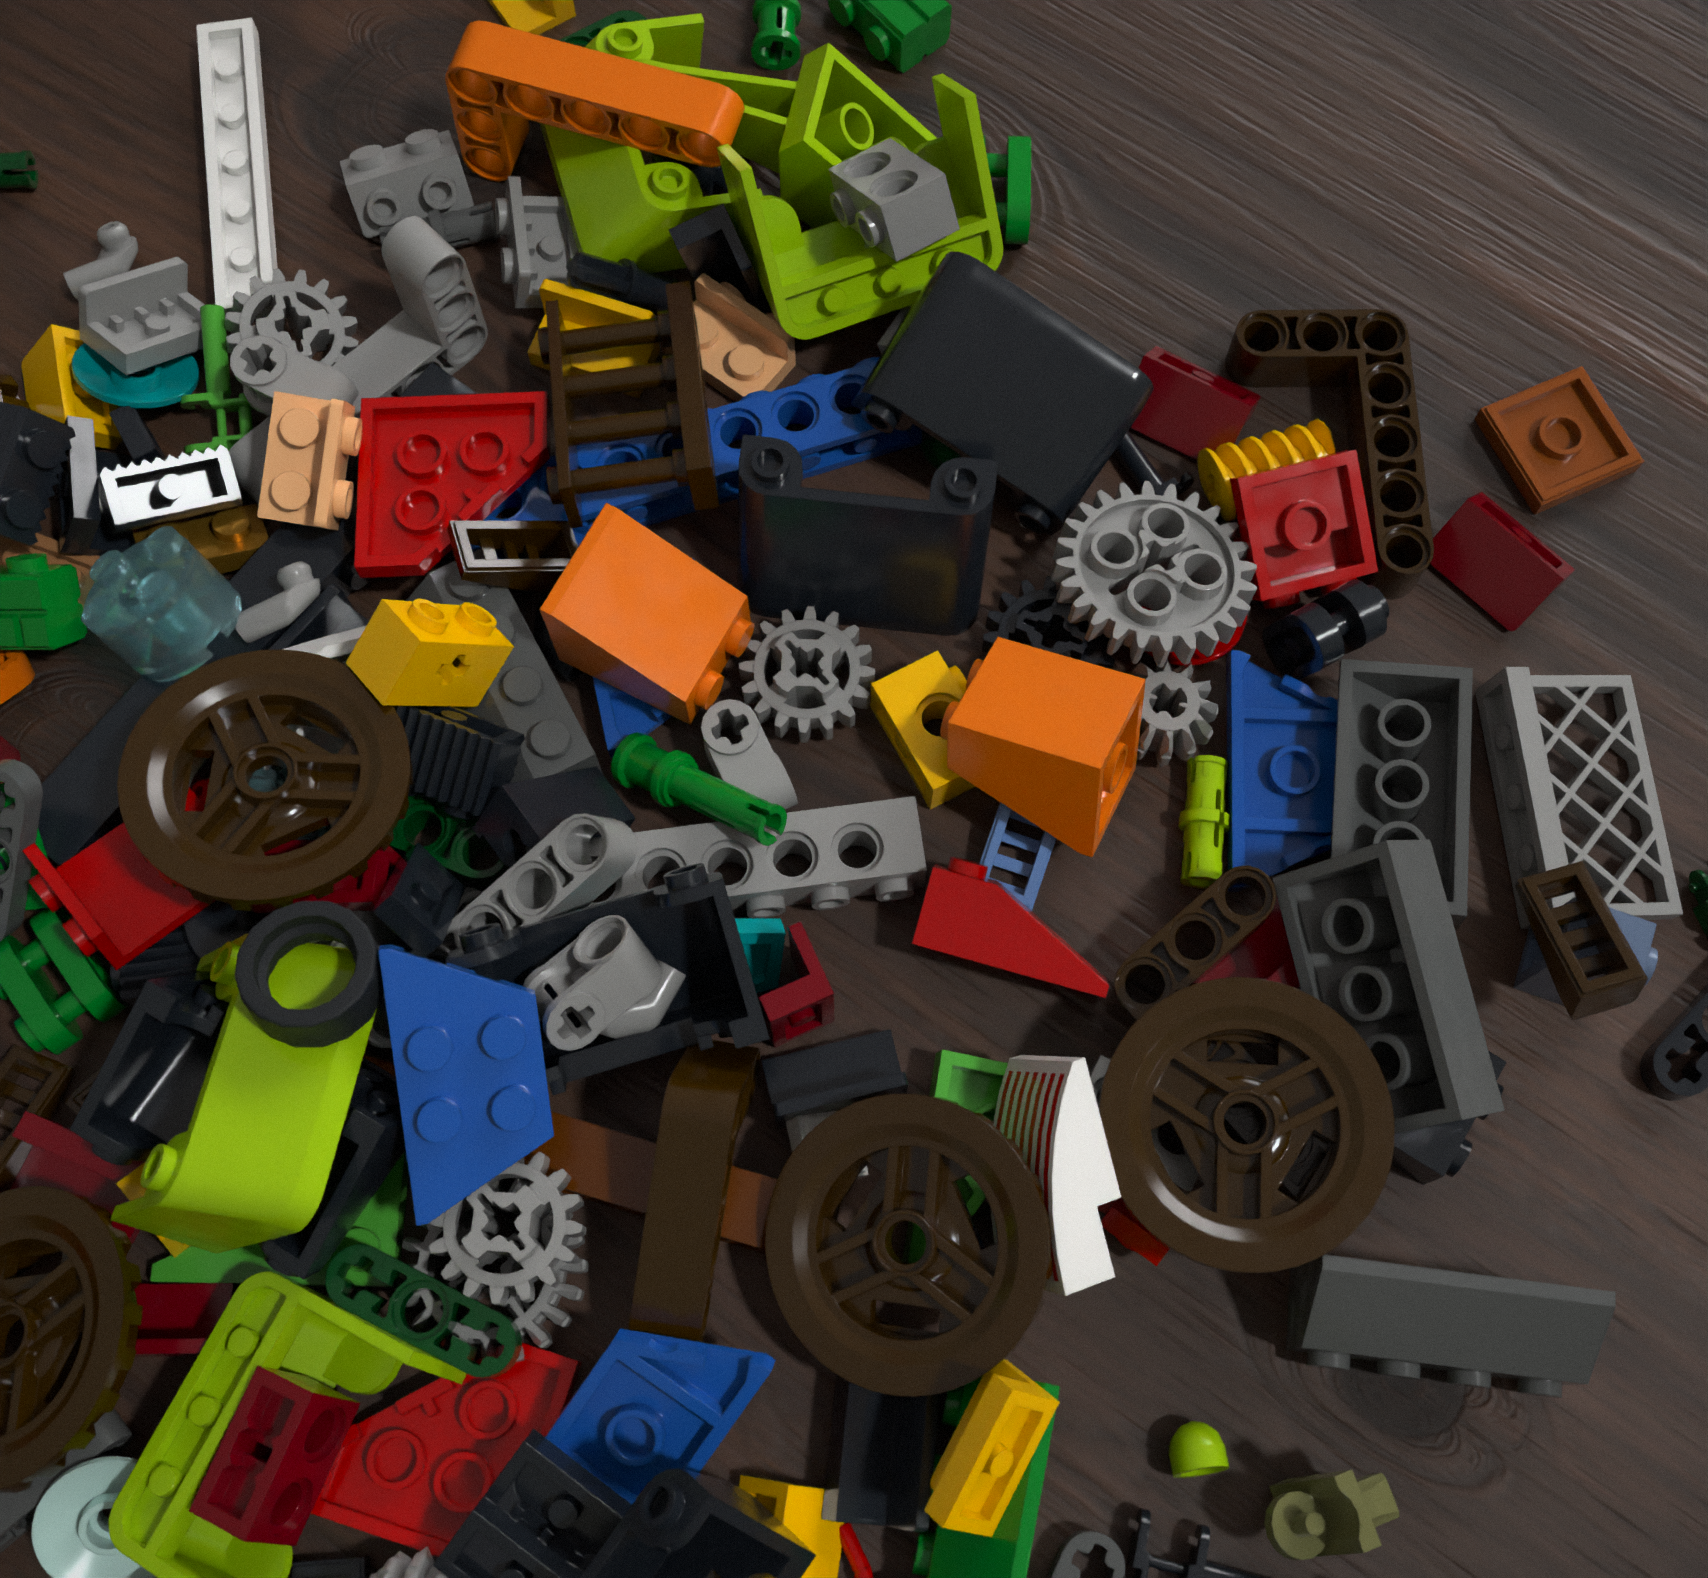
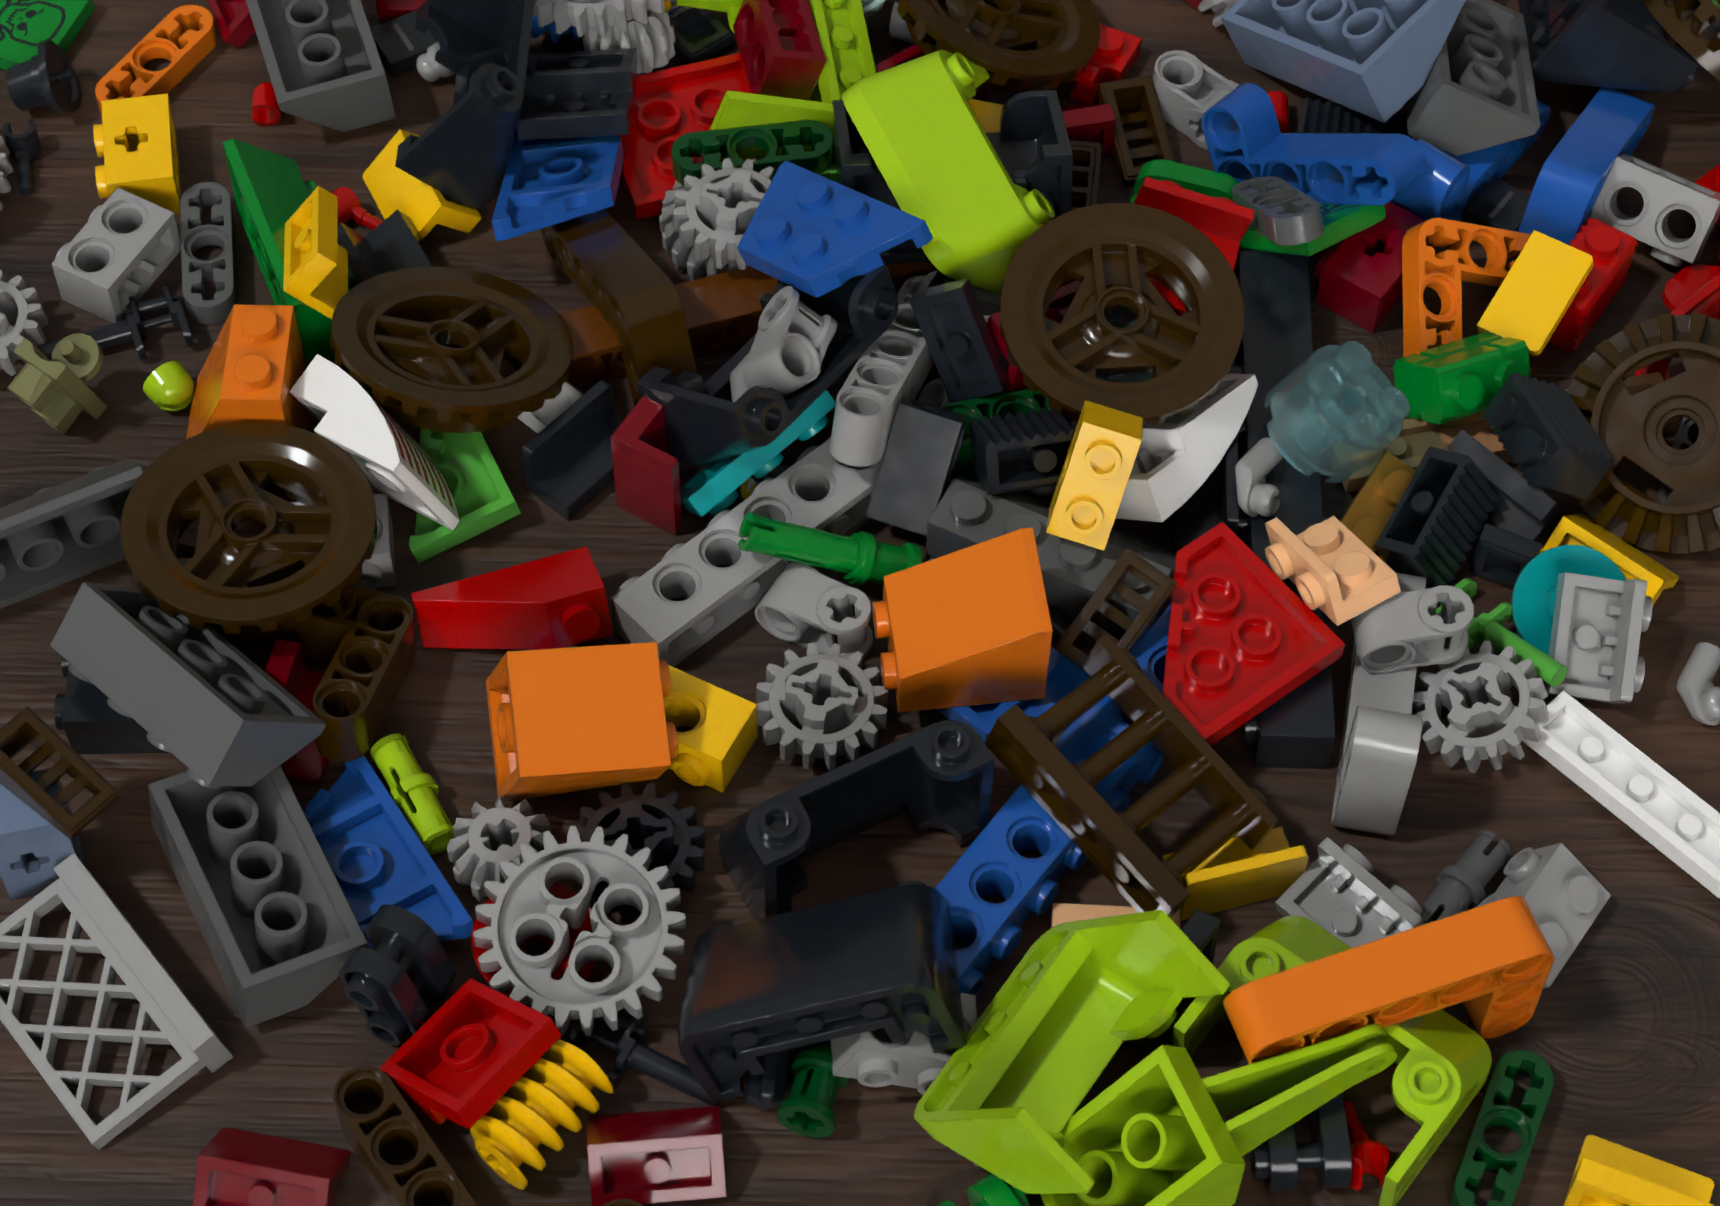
camera: 145 degrees right, 15 degrees down
(293, 927) = (973, 164): black tyre -> none
(618, 280) = (1253, 904): black axle -> none
(893, 199) = (1039, 1071): light grey brick -> none
(1147, 1341) = (251, 372): none -> orange slope

